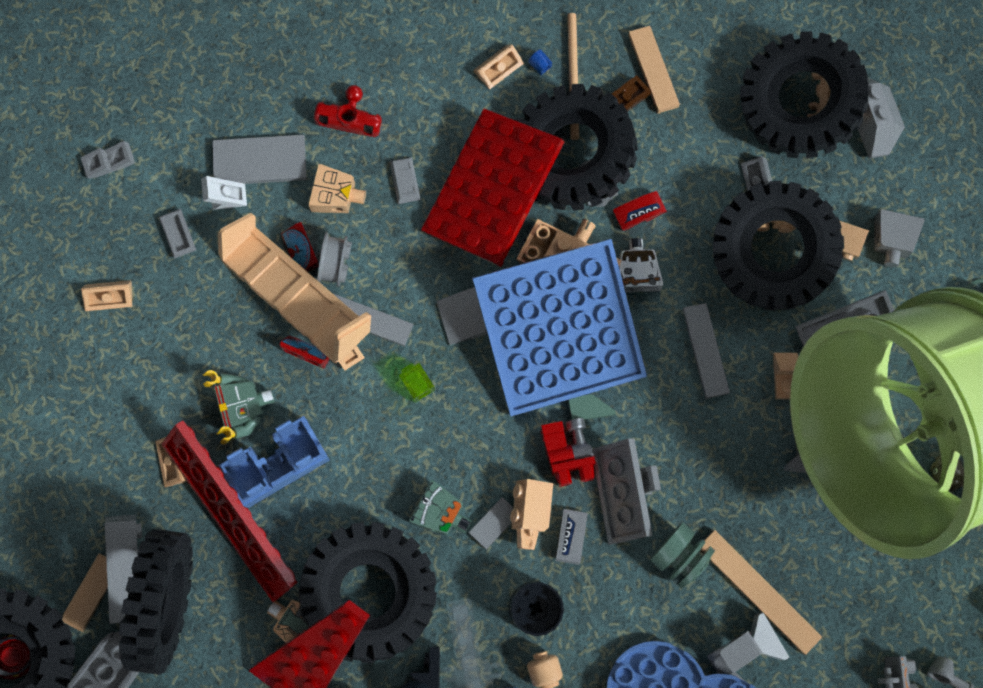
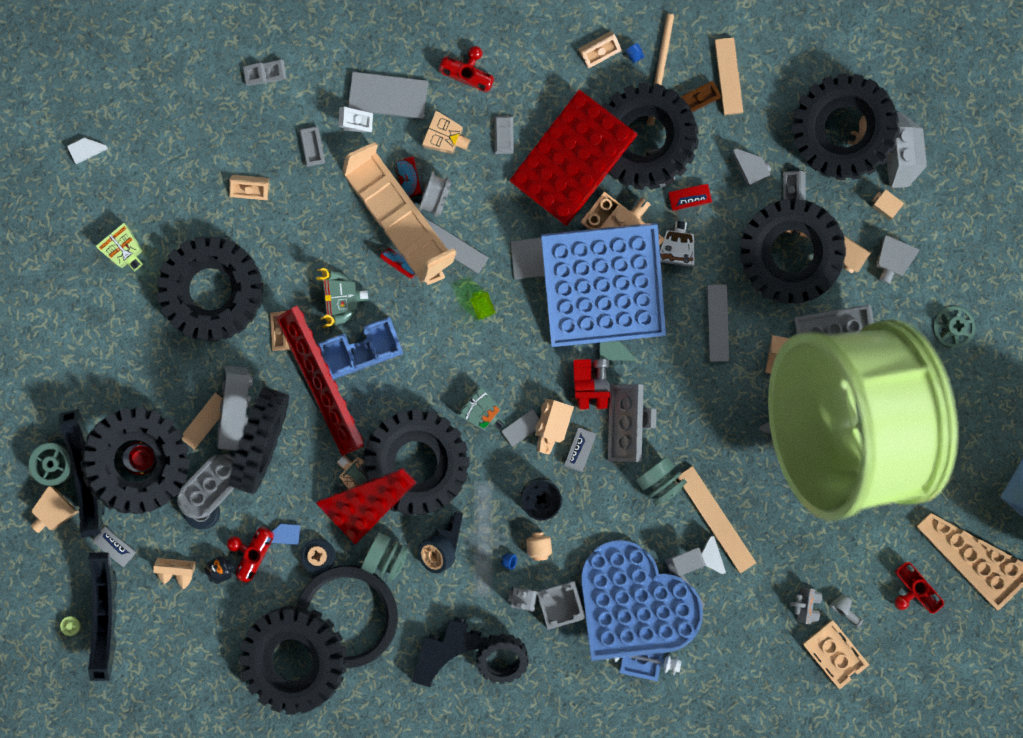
camera: 15 degrees right, 10 degrees up
(37, 401) = (175, 288): none -> black tyre
(703, 162) = (751, 167): none -> light grey slope
(871, 176) = (886, 204): none -> light nougat brick

